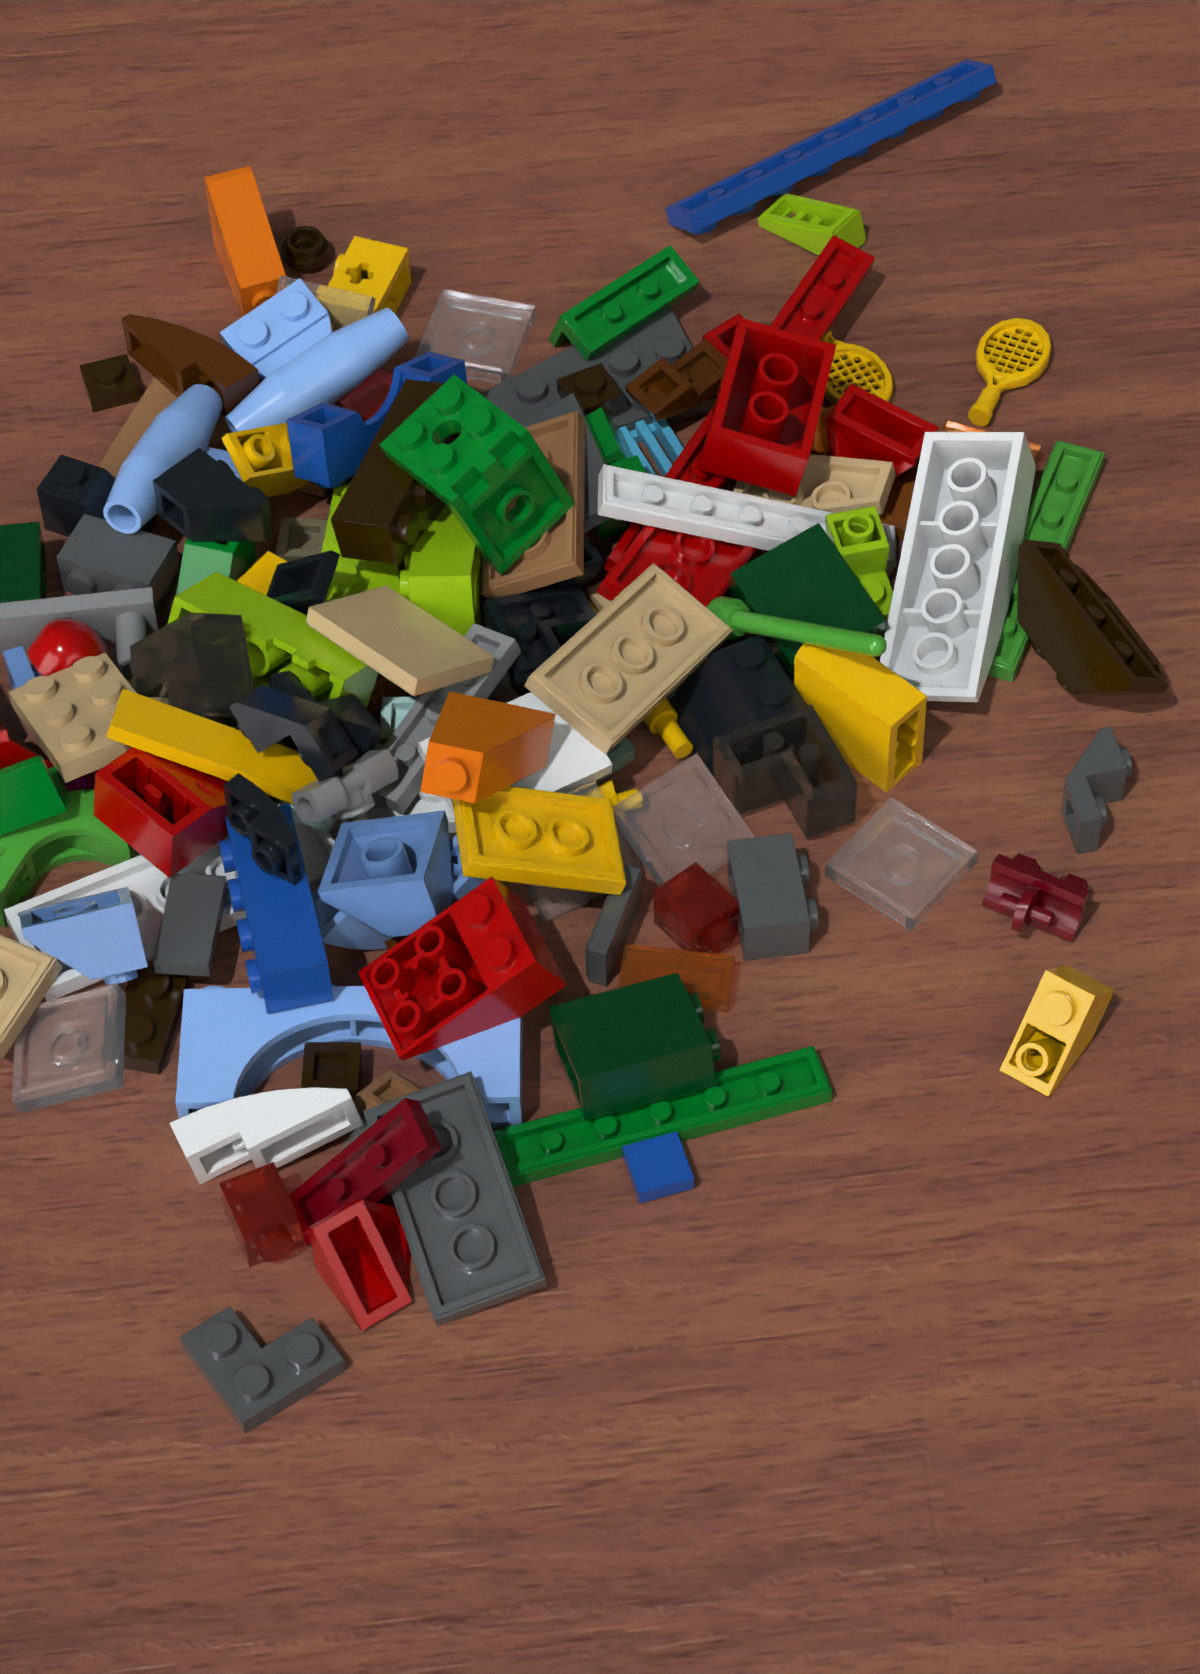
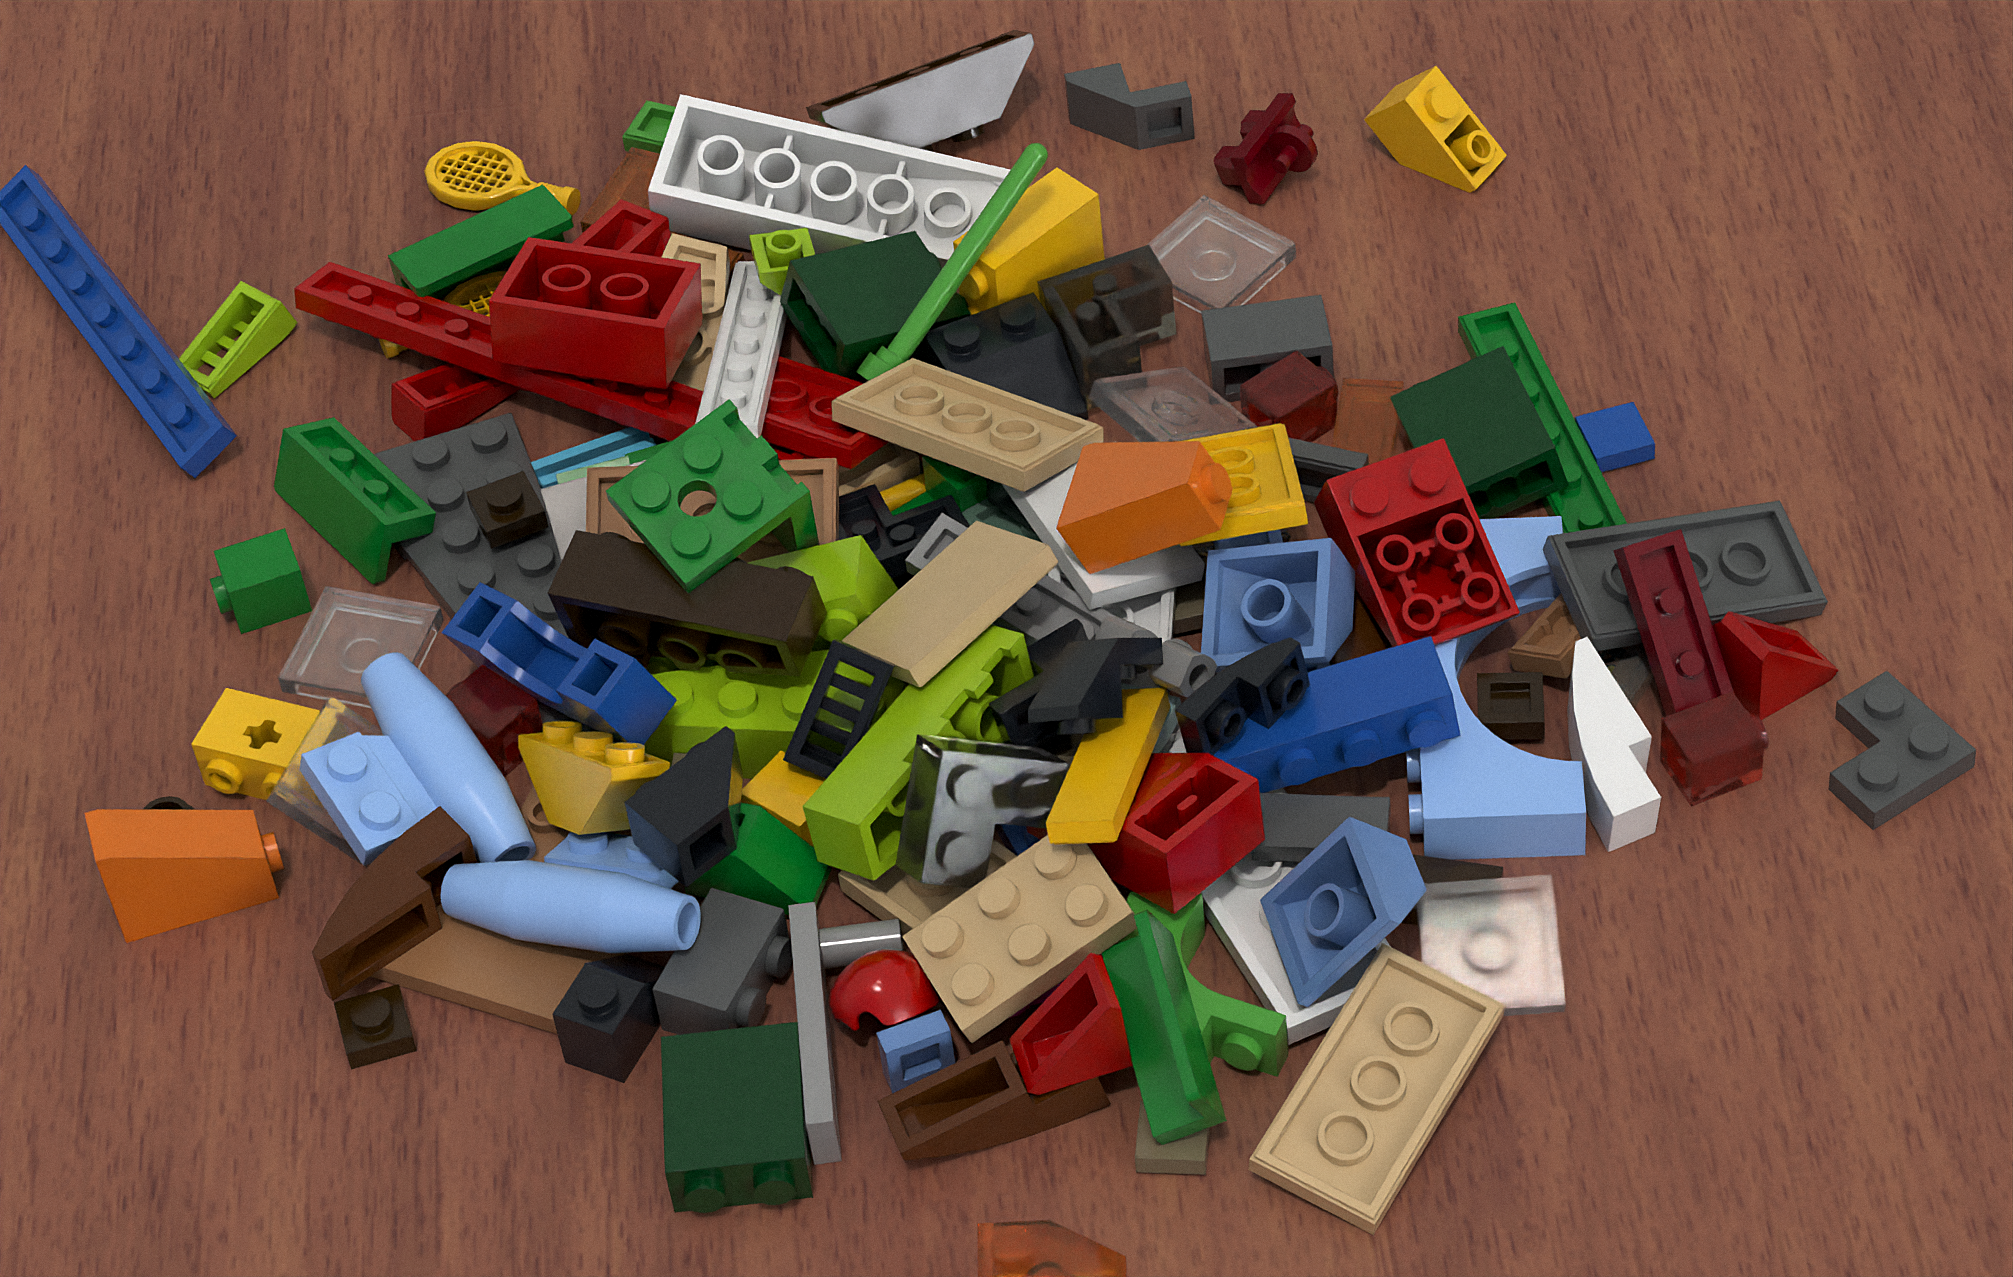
camera: 85 degrees left, 5 degrees down
(538, 266) = (260, 581): none -> green brick
(679, 386) = (501, 424): reddish brown slope -> none
(900, 352) = (479, 243): none -> green panel

